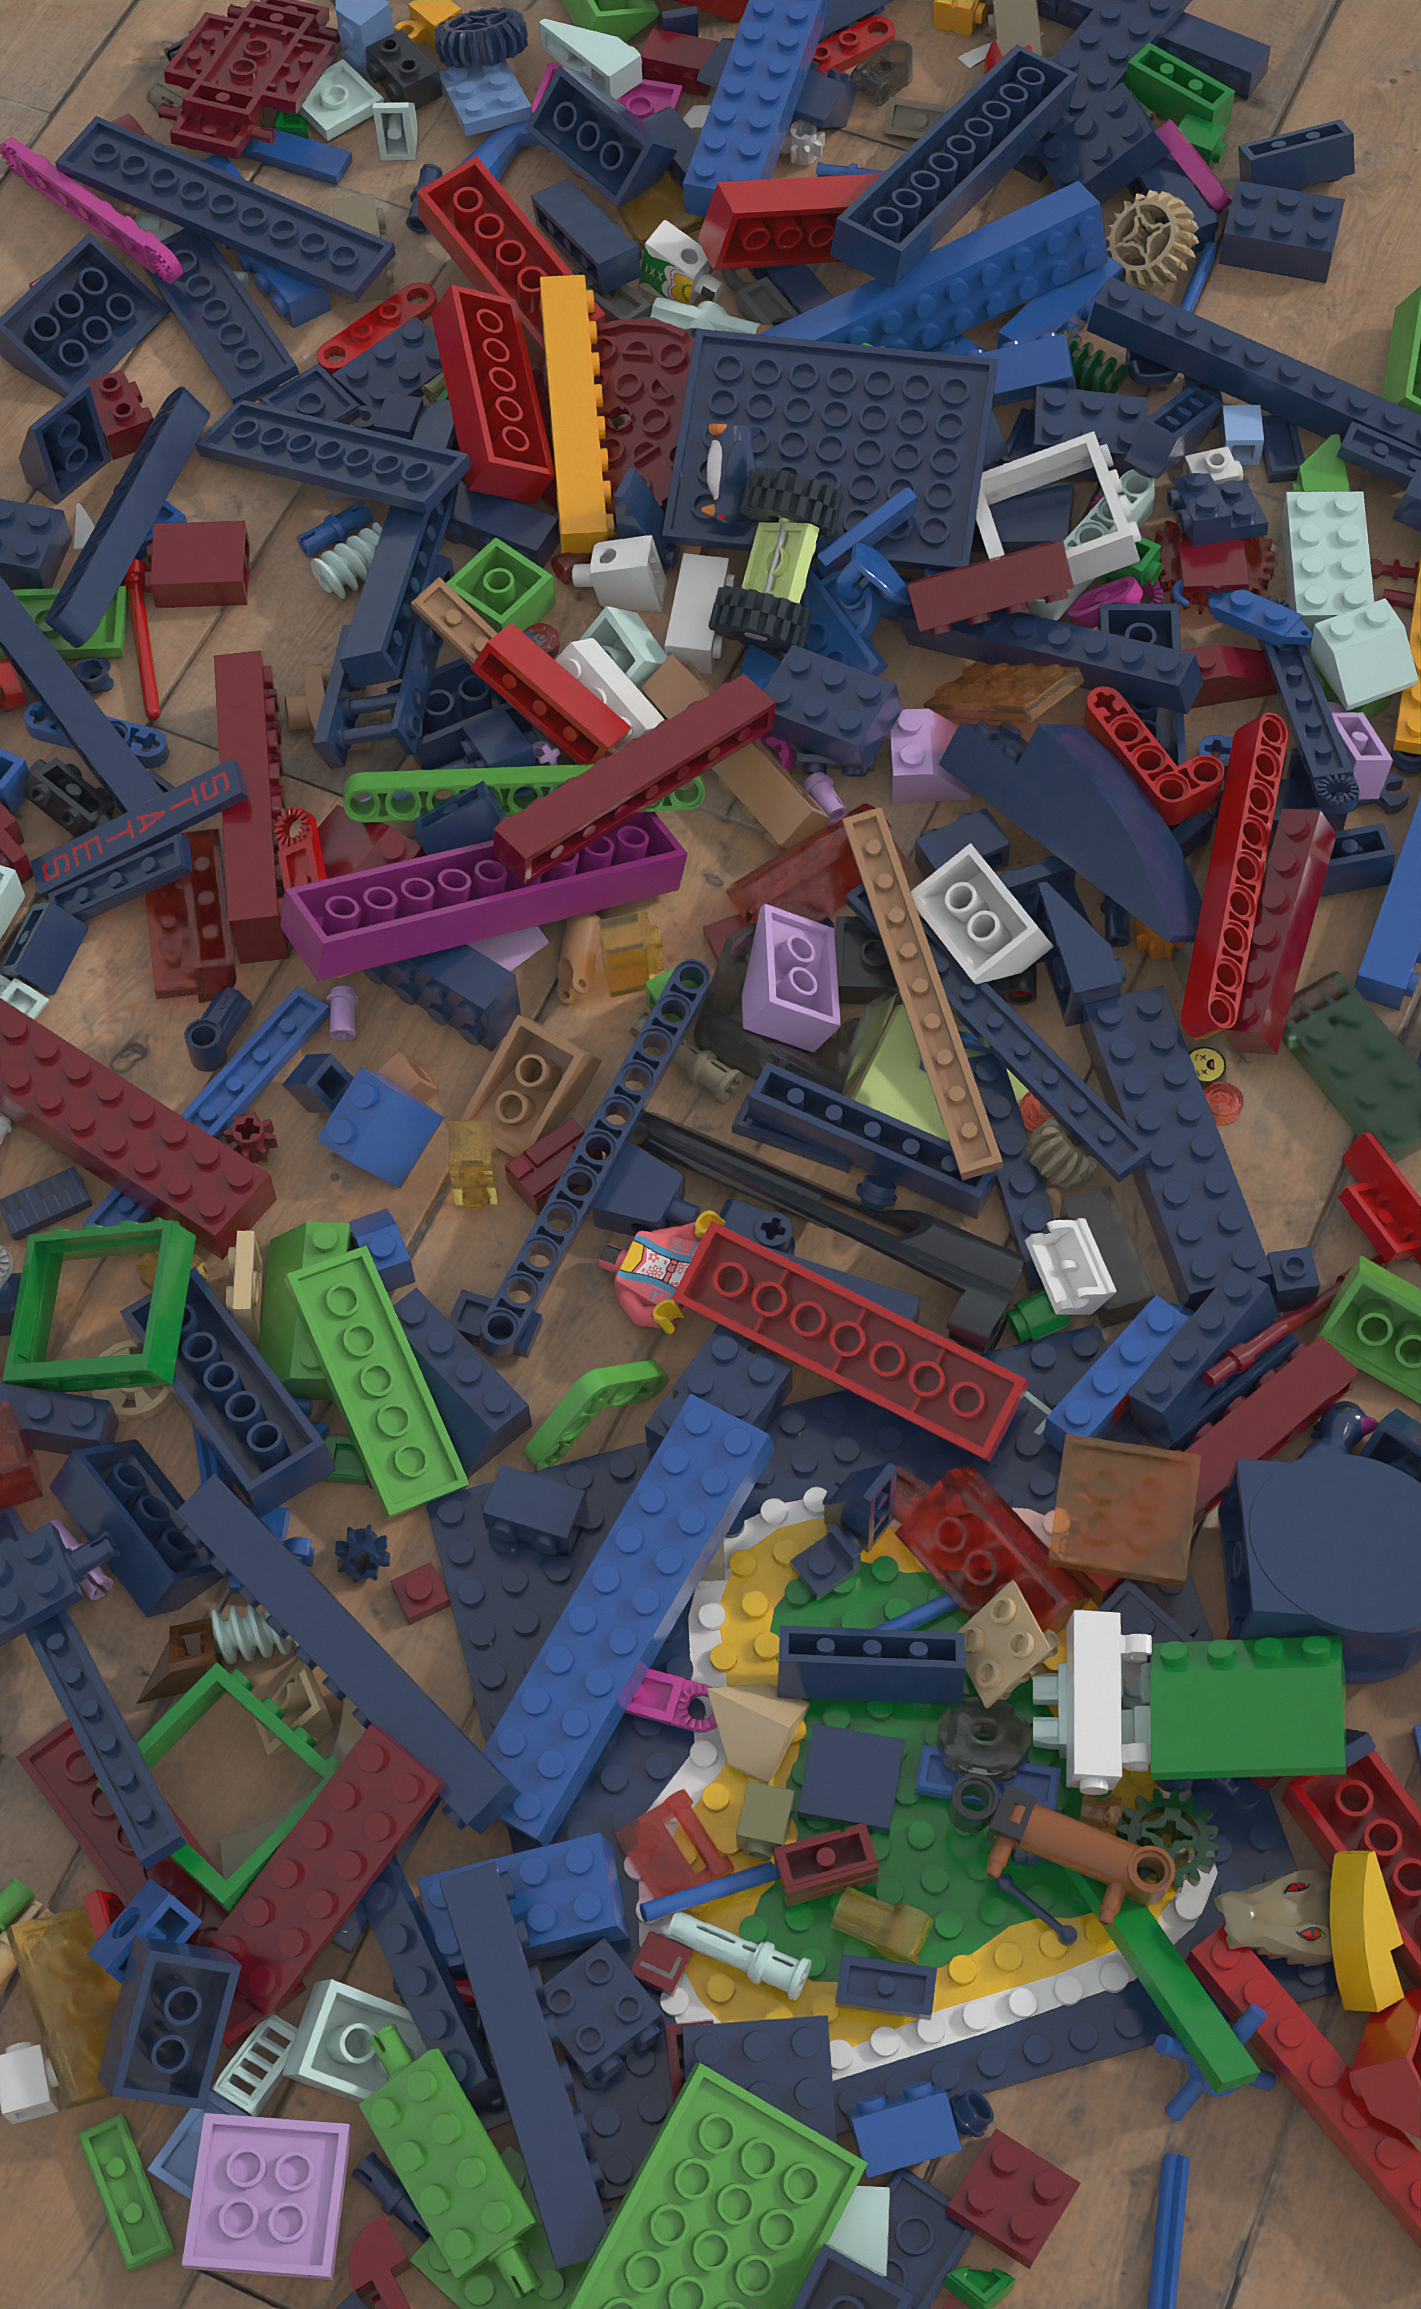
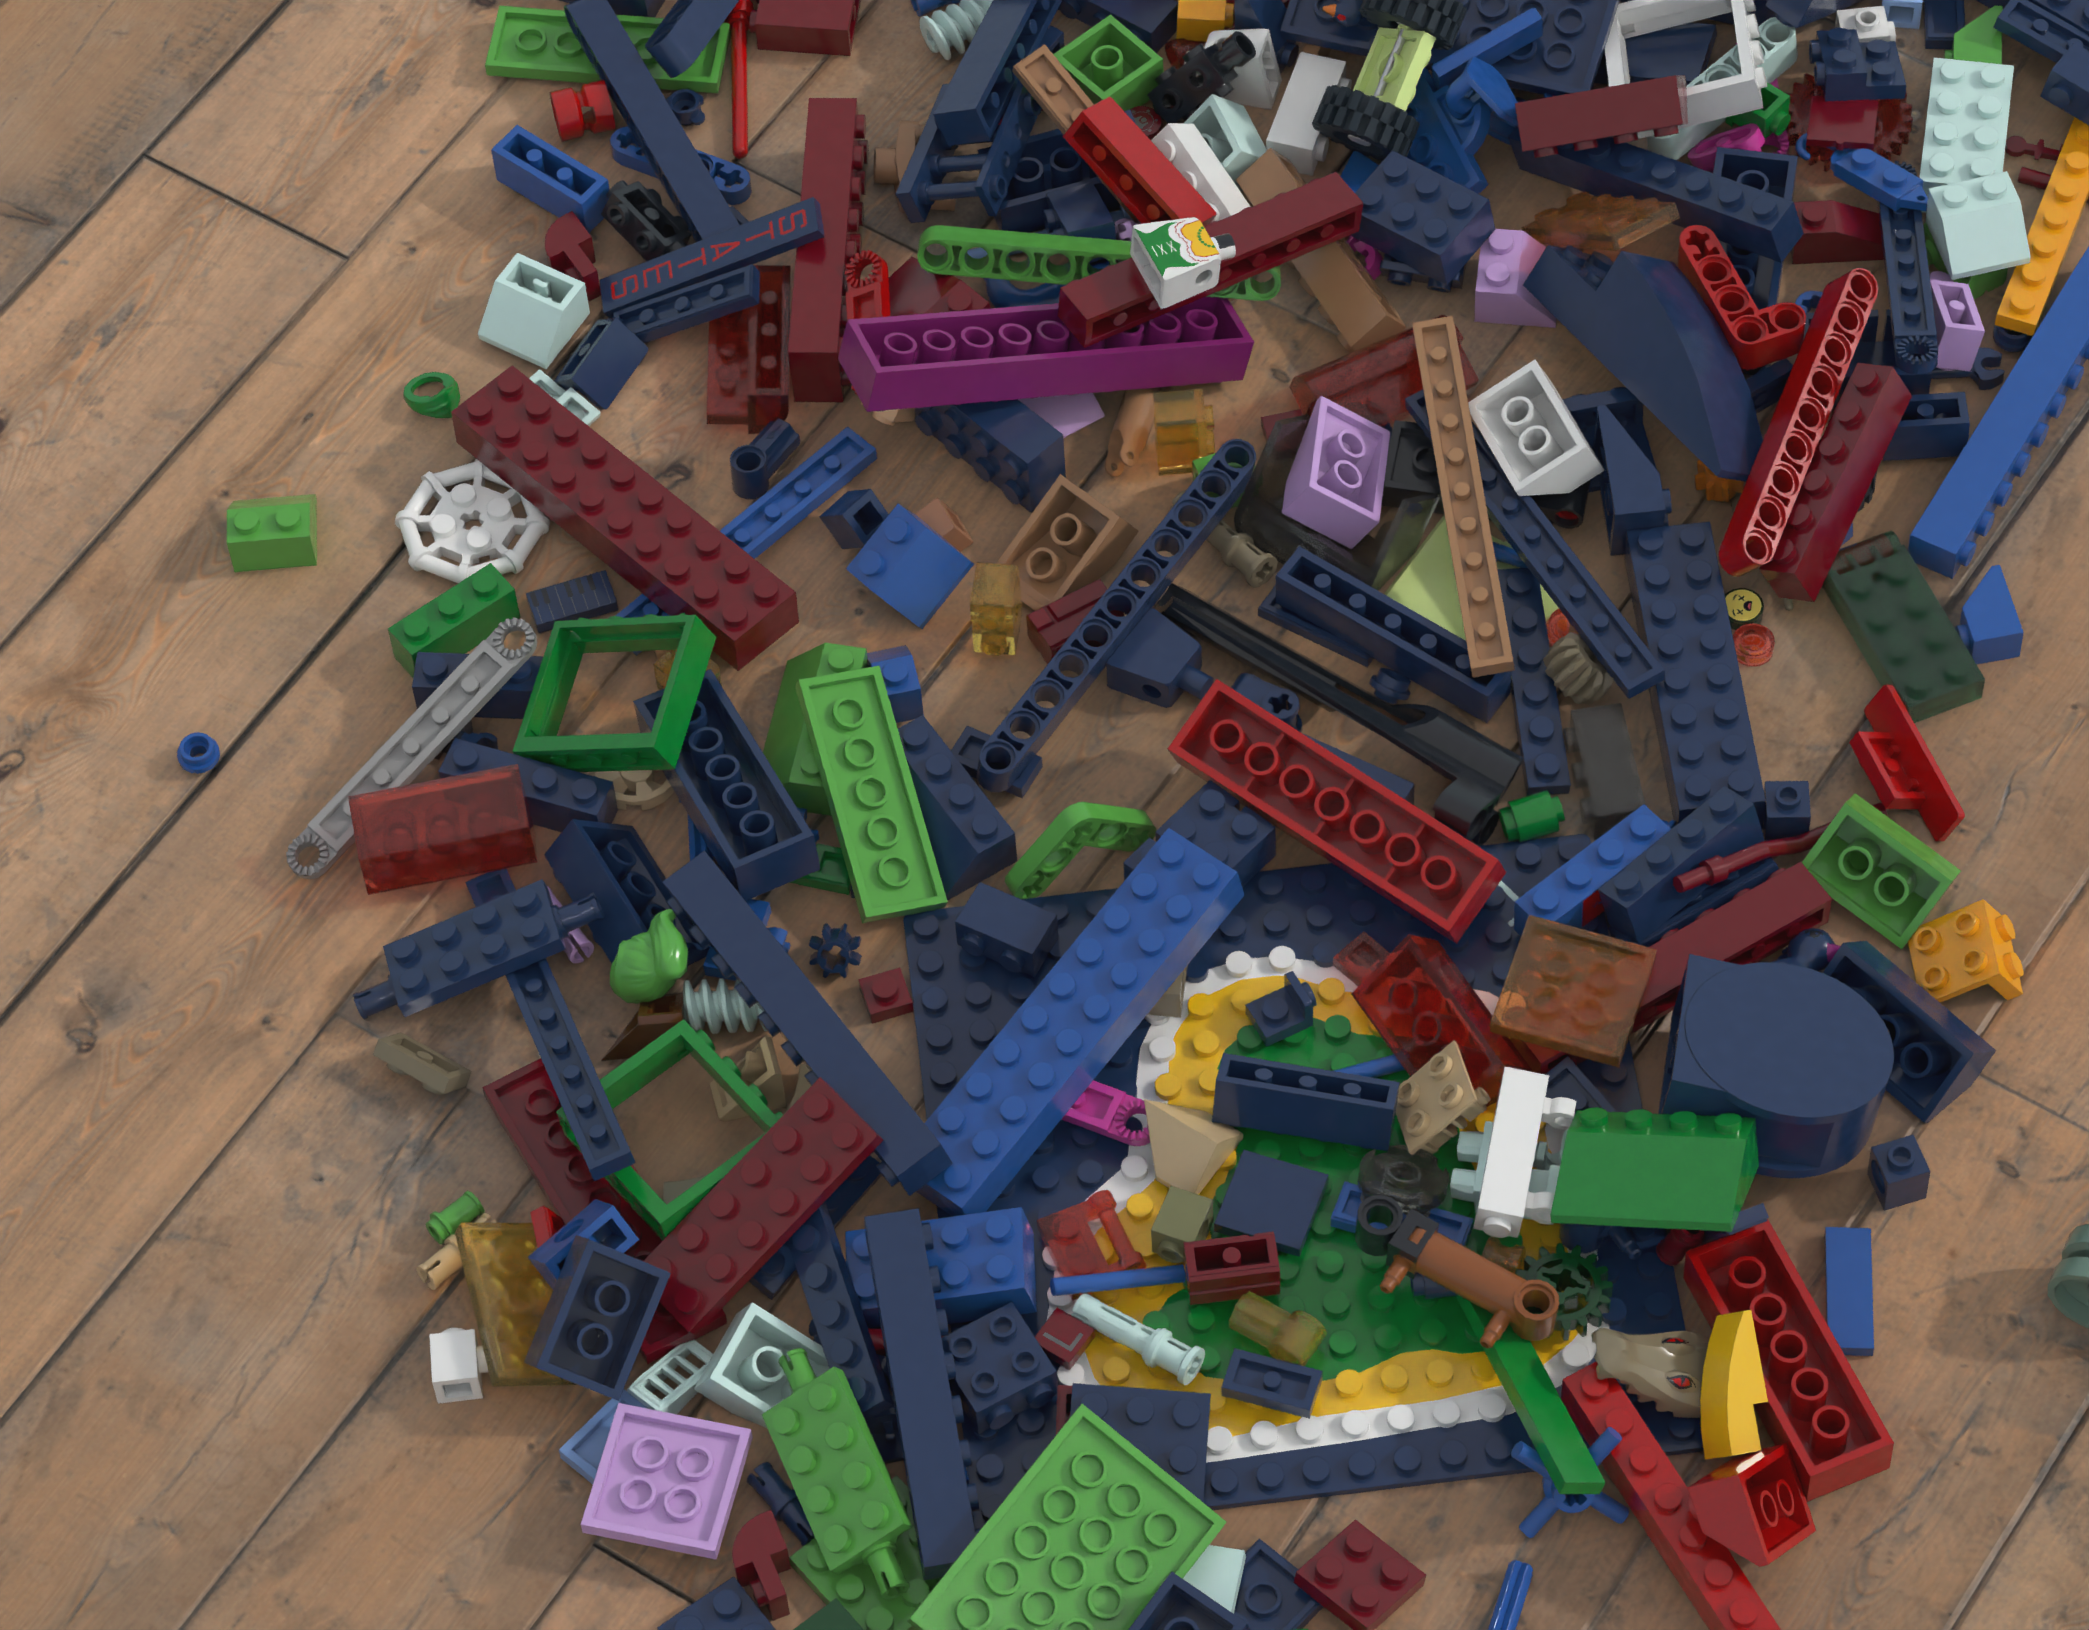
camera: 10 degrees right, 5 degrees down
(126, 2192) = (536, 1471): bright green tile -> none
(174, 1598) = (650, 961): none -> bright green hair
(245, 1295) = (758, 699): tan plate -> none
(251, 1137) = (783, 560): dark red gear -> none
(342, 1012) = (889, 449): lavender pin -> none
(460, 821) = (1029, 281): dark blue brick -> none
(577, 605) = (1184, 91): none -> black brick
(607, 784) = (1178, 258): none -> white torso
(653, 1271) = (1150, 729): torso -> none
(821, 790) = (1403, 301): lavender pin -> none
(863, 1503) = (1325, 958): dark blue slope -> none
(903, 2128) = (1266, 1504): blue brick -> none
(942, 844) = (1552, 355): dark blue brick -> none
(971, 2113) = (1333, 1503): dark blue plate -> none
(1066, 1934) = (1452, 1363): dark blue hinge -> none
(1071, 1267) = (1566, 772): white hinge -> none
(1115, 923) = (1678, 462): dark blue pin -> none

